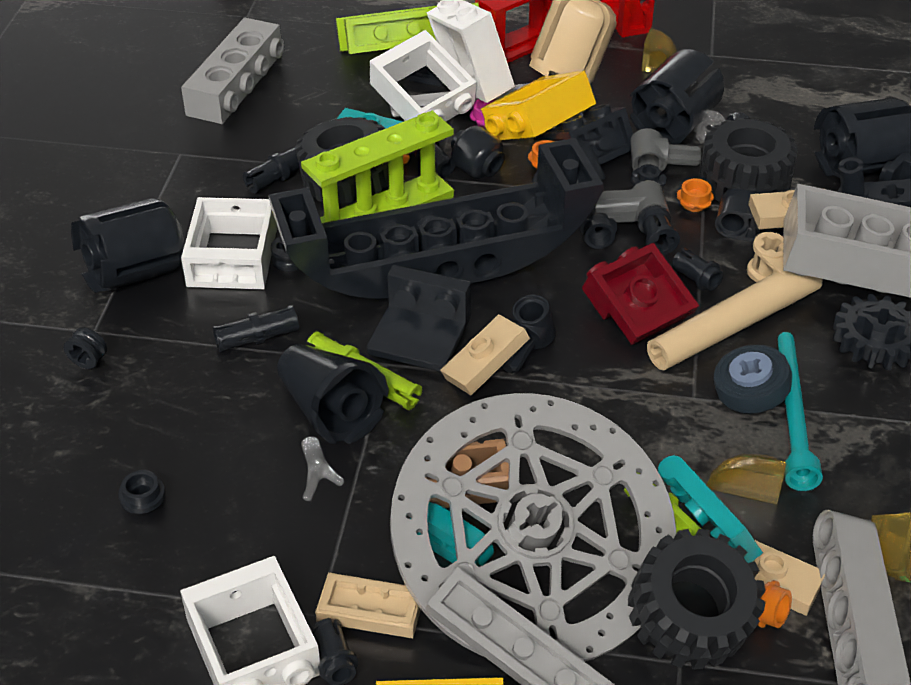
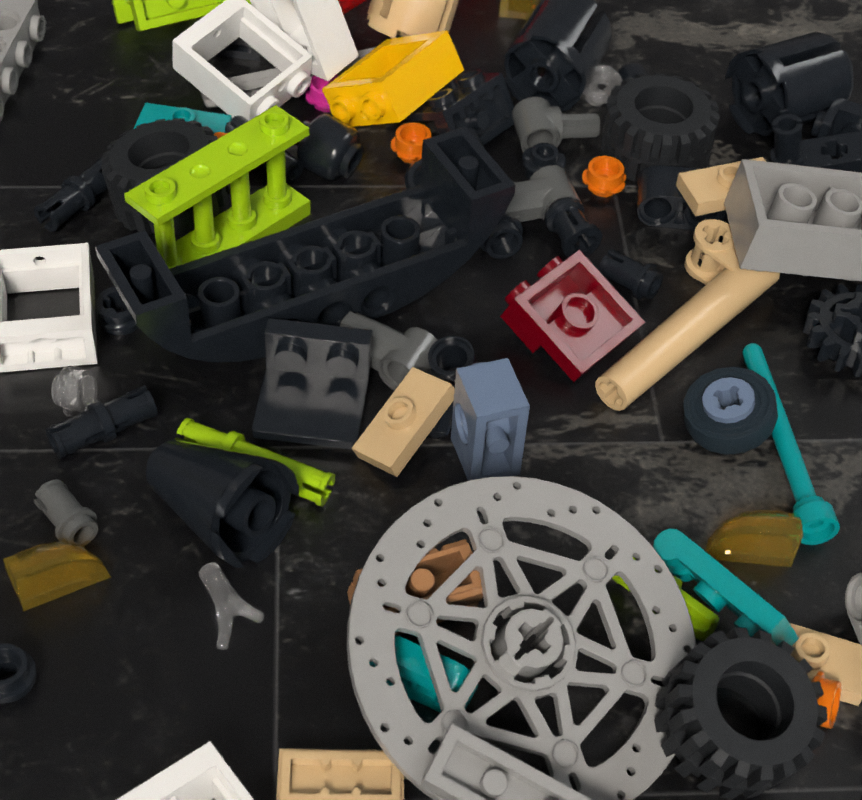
camera: 15 degrees left, 5 degrees up
(194, 428) = (52, 572): none -> clear yellow brick
(216, 395) = (71, 520): none -> dark grey pin
(240, 302) = (74, 390): none -> clear plate
(489, 301) = (392, 350): none -> dark grey piece
(549, 354) = (489, 420): none -> sand blue brick

